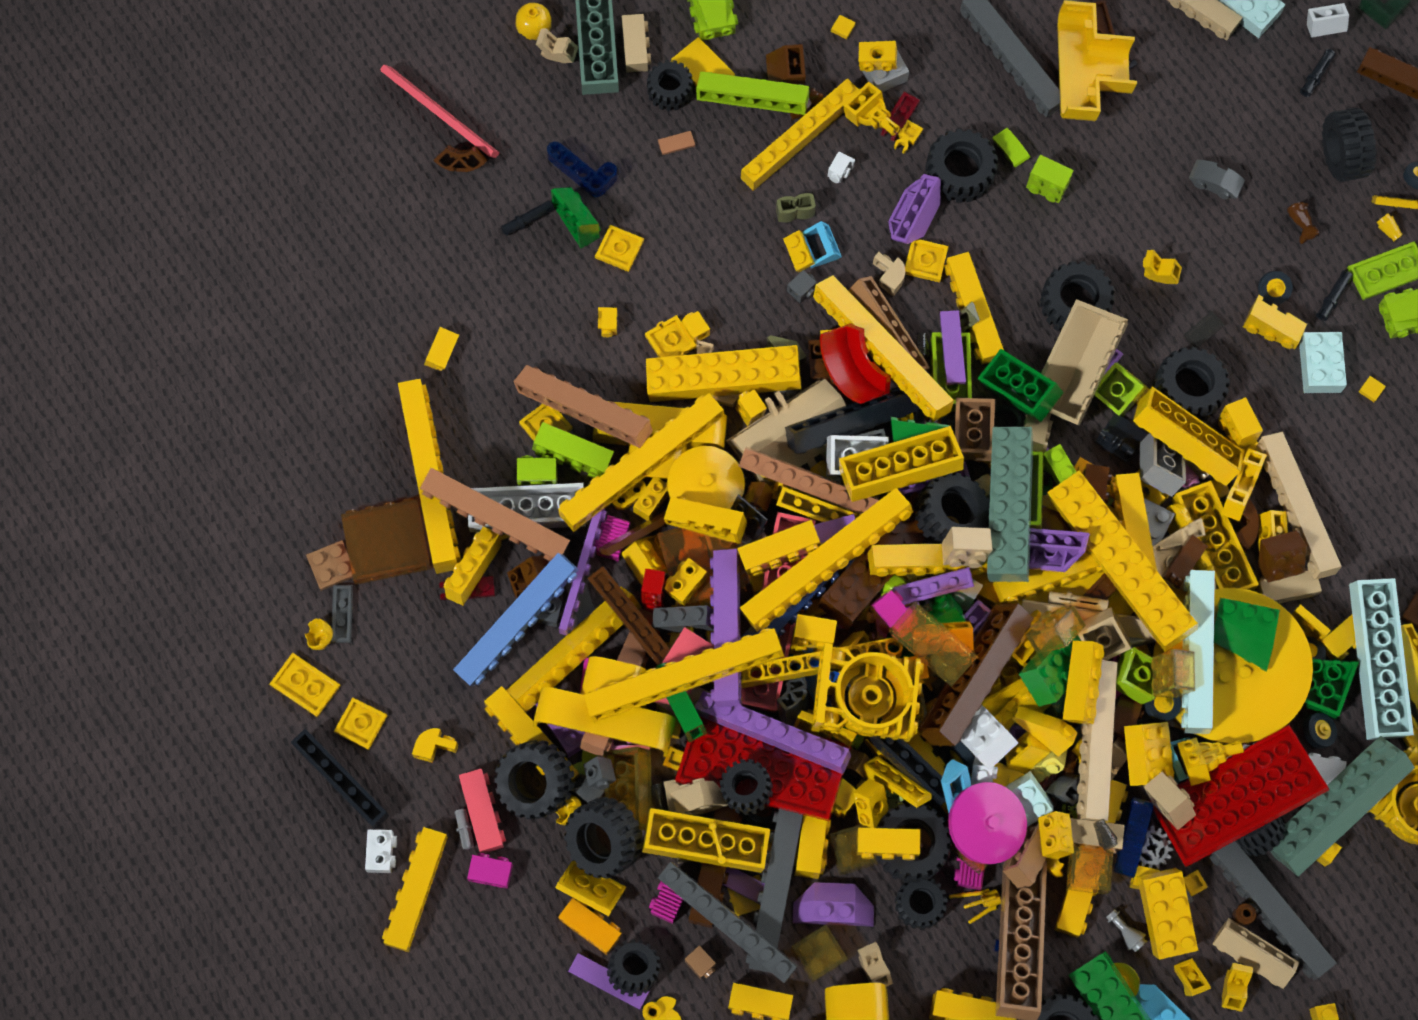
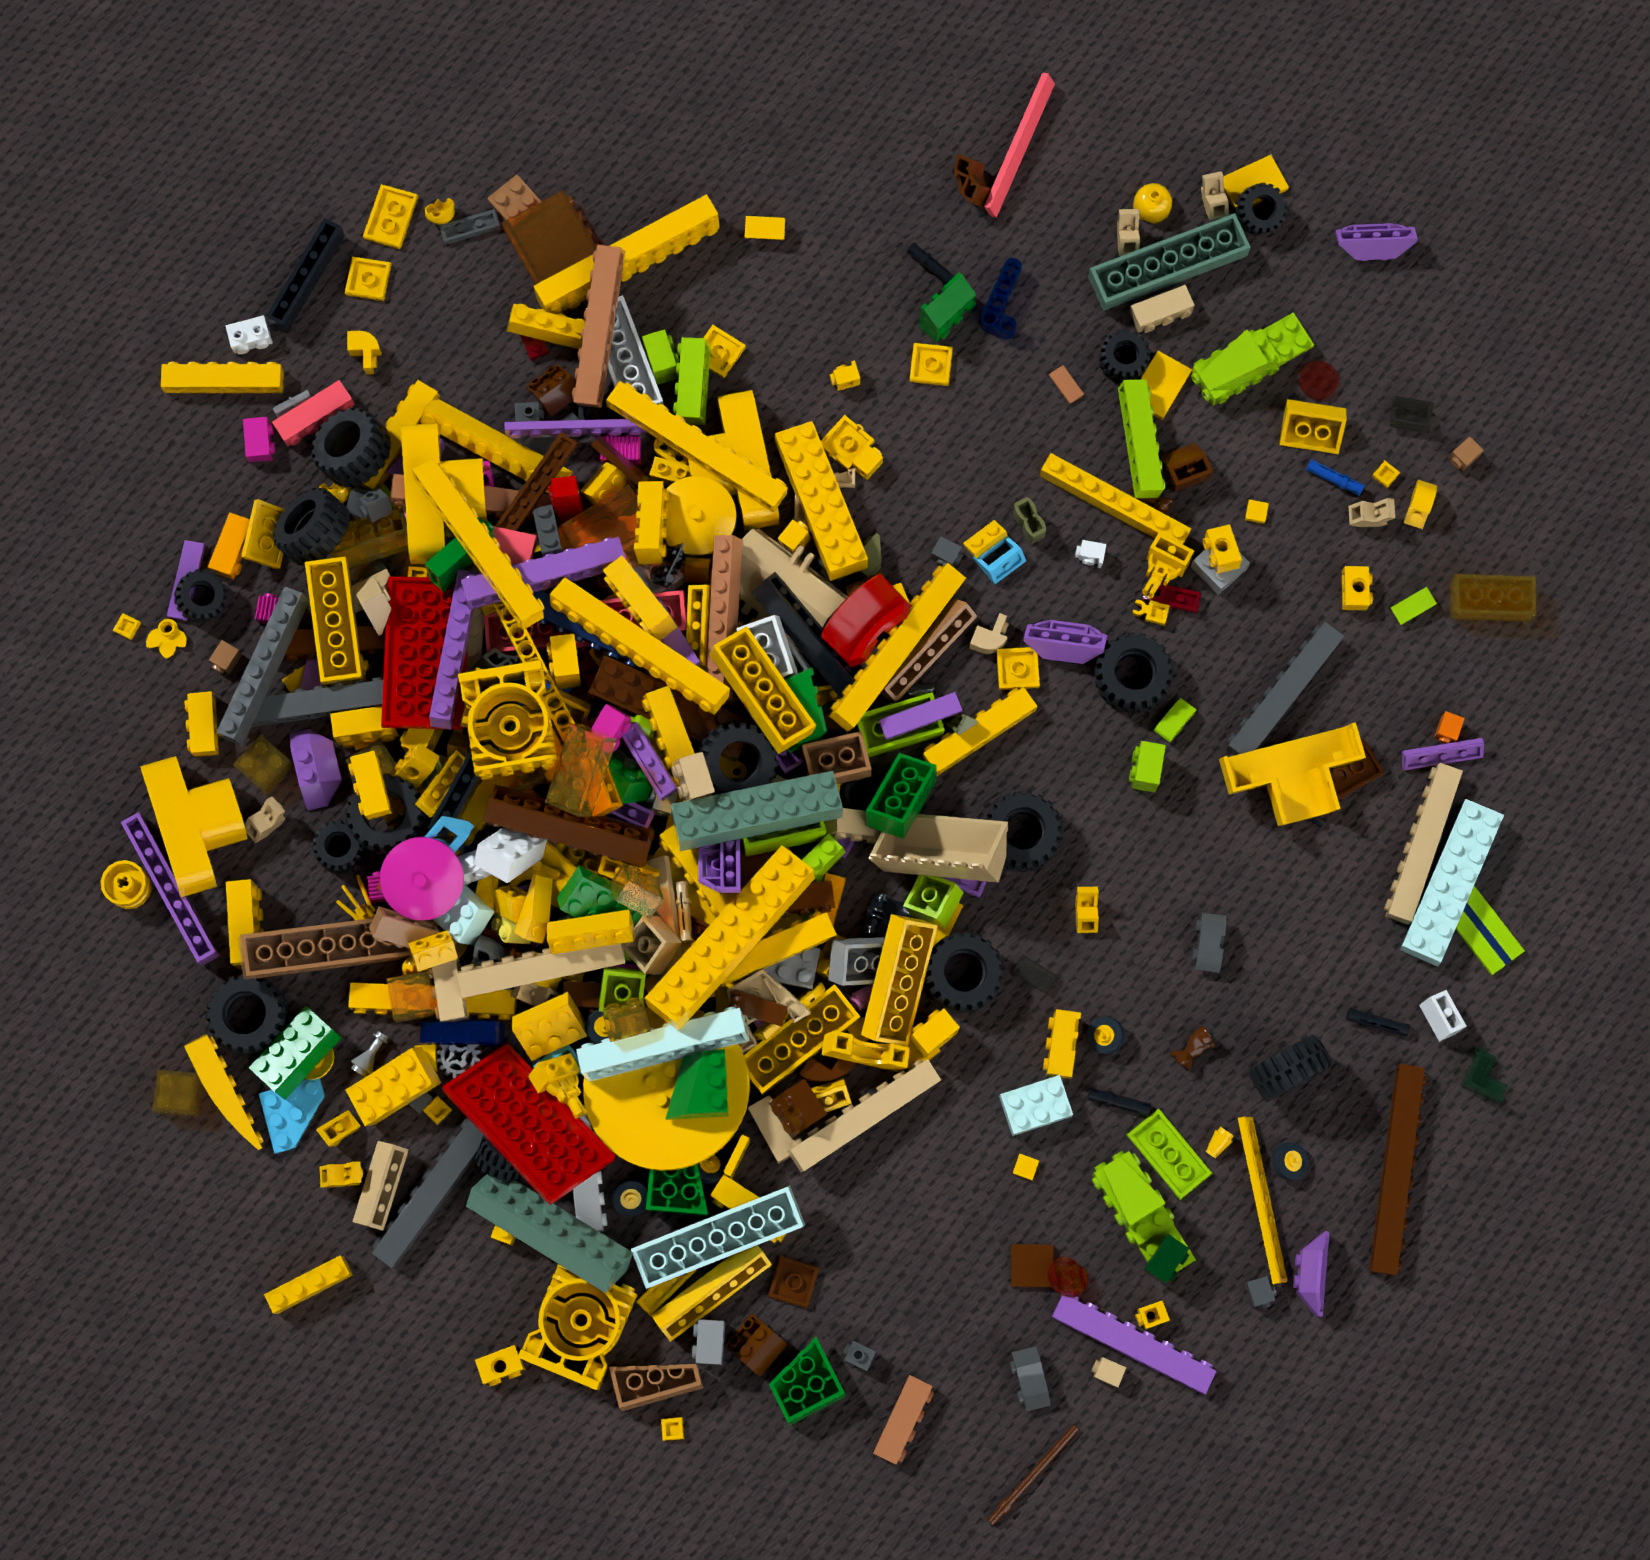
camera: 75 degrees right, 5 degrees up
(516, 619) = (504, 382): medium blue brick -> none
(583, 406) = (739, 375): nougat brick -> none
(685, 581) = (583, 523): yellow brick -> none
(721, 859) = (316, 637): yellow hinge -> none
(743, 771) = (395, 653): black tyre -> none
(1105, 835) = (444, 998): clear smoke cone -> none
(1170, 800) = (503, 1056): tan brick -> none
(1238, 917) = (422, 1167): reddish brown brick -> none

